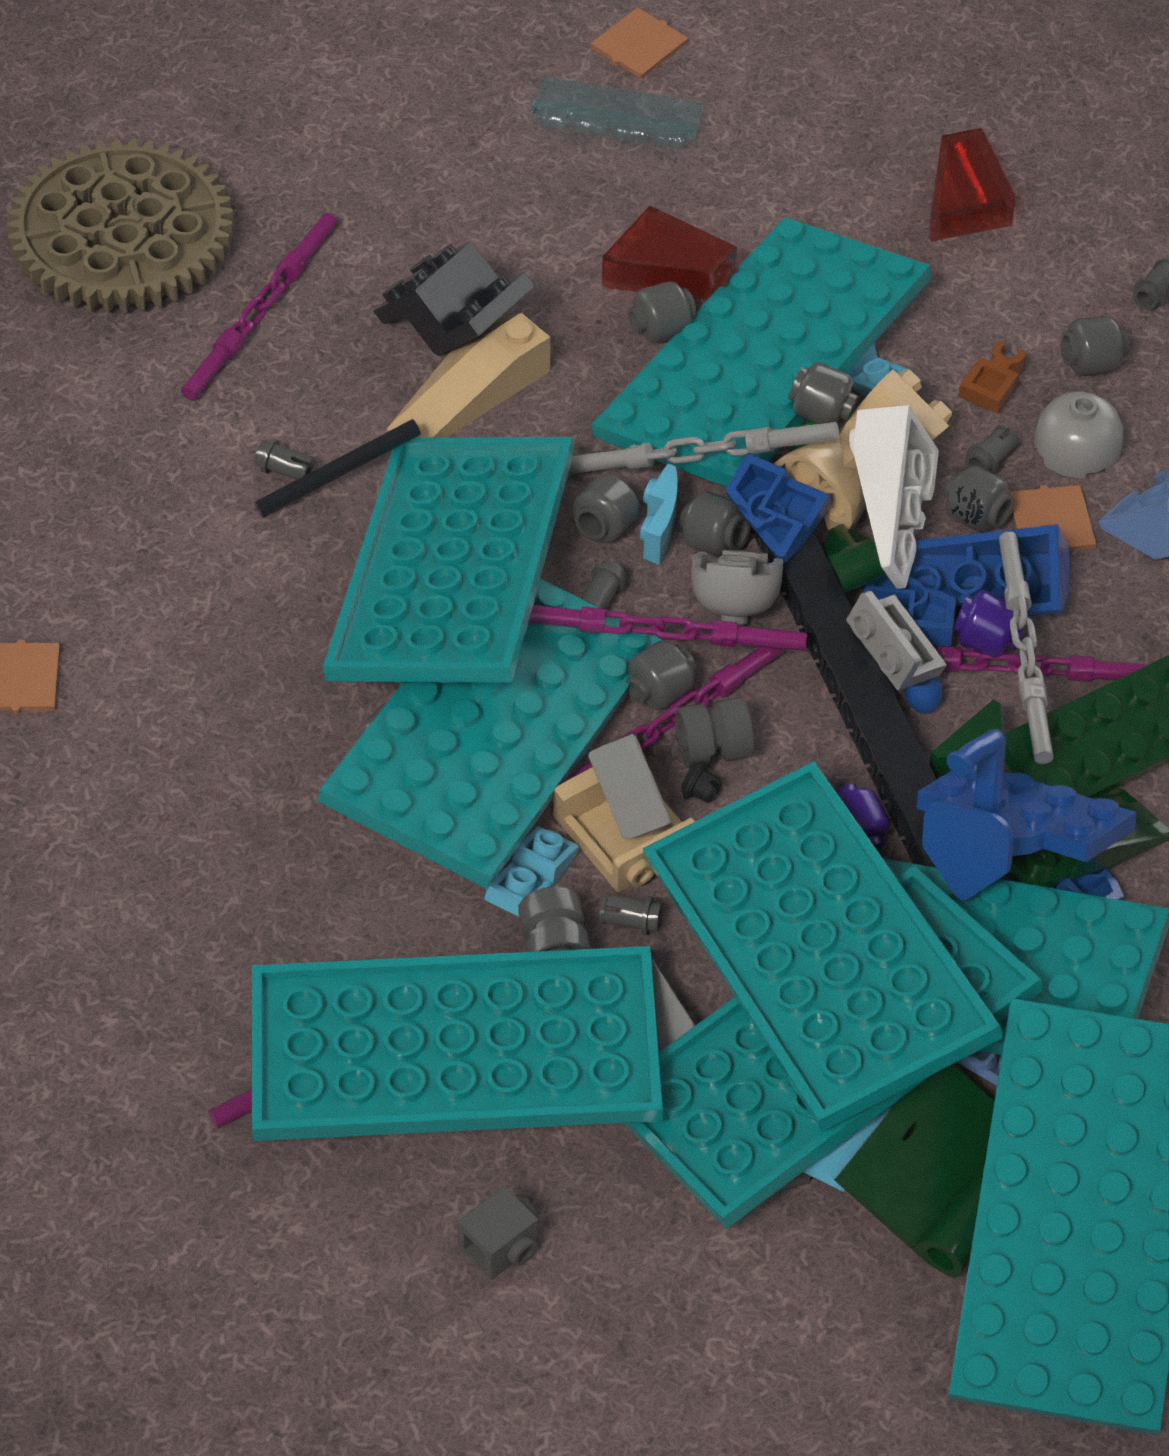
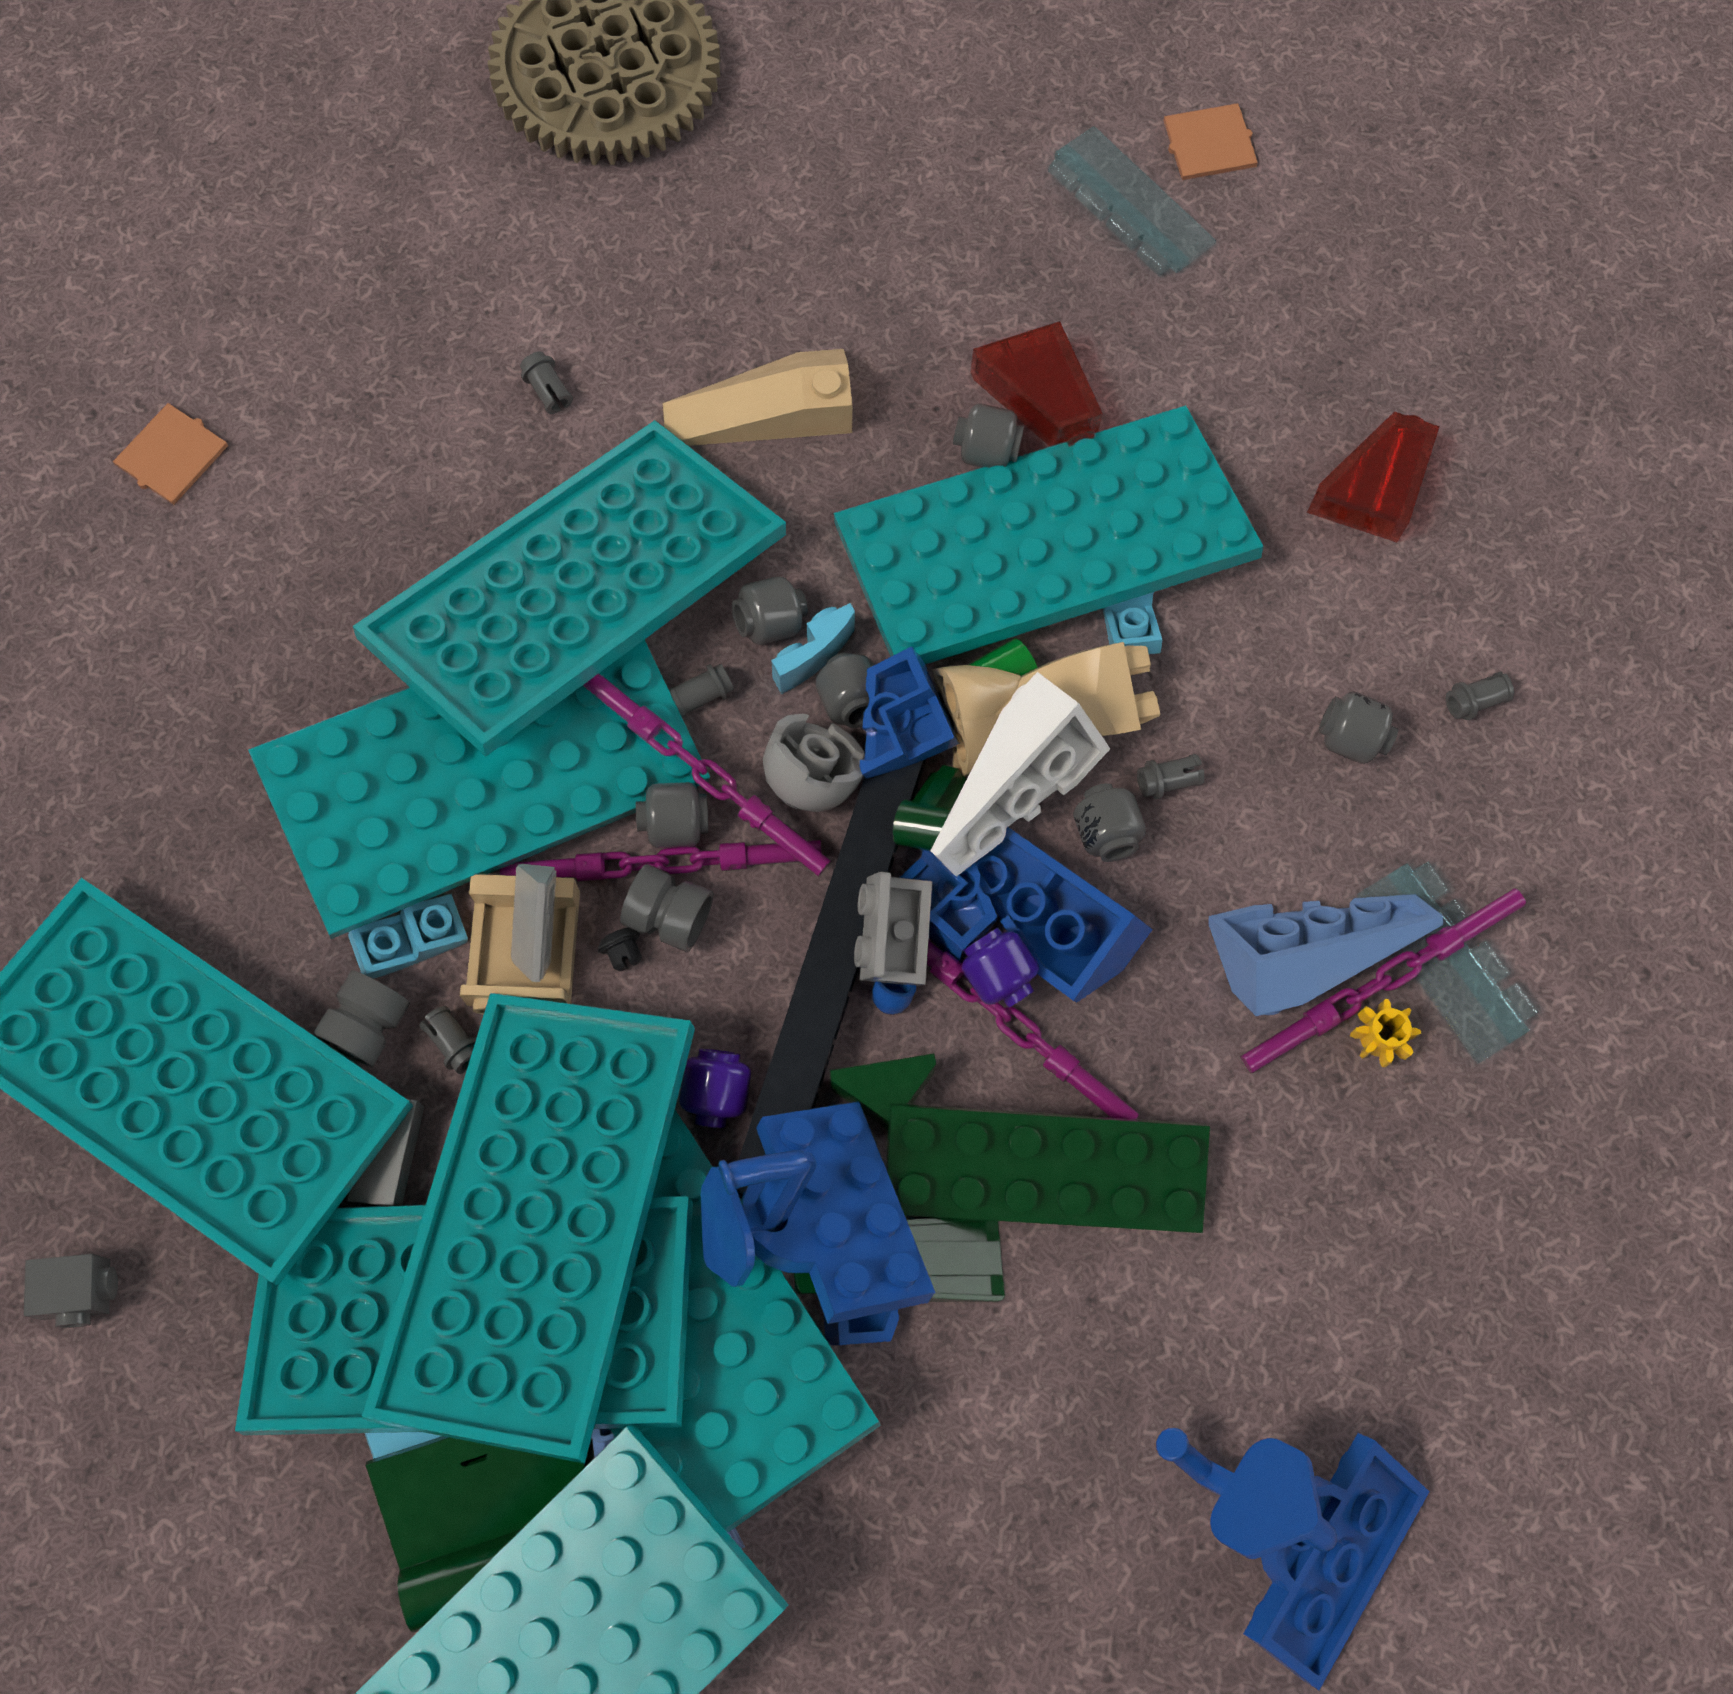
camera: 35 degrees right, 20 degrees up
(231, 340) = (601, 233): magenta piece -> none
(337, 468) = (580, 419): black bar -> none
(452, 297) = (809, 309): black bracket -> none
(757, 441) = (925, 639): light grey piece -> none
(822, 394) = (1034, 628): dark grey head -> none
(993, 381) = (1233, 702): dark orange plate -> none
(1032, 690) = (955, 1086): light grey piece -> none
(1052, 507) = (1170, 883): nougat piece -> none
(1079, 434) = (1266, 813): light grey cylinder -> none

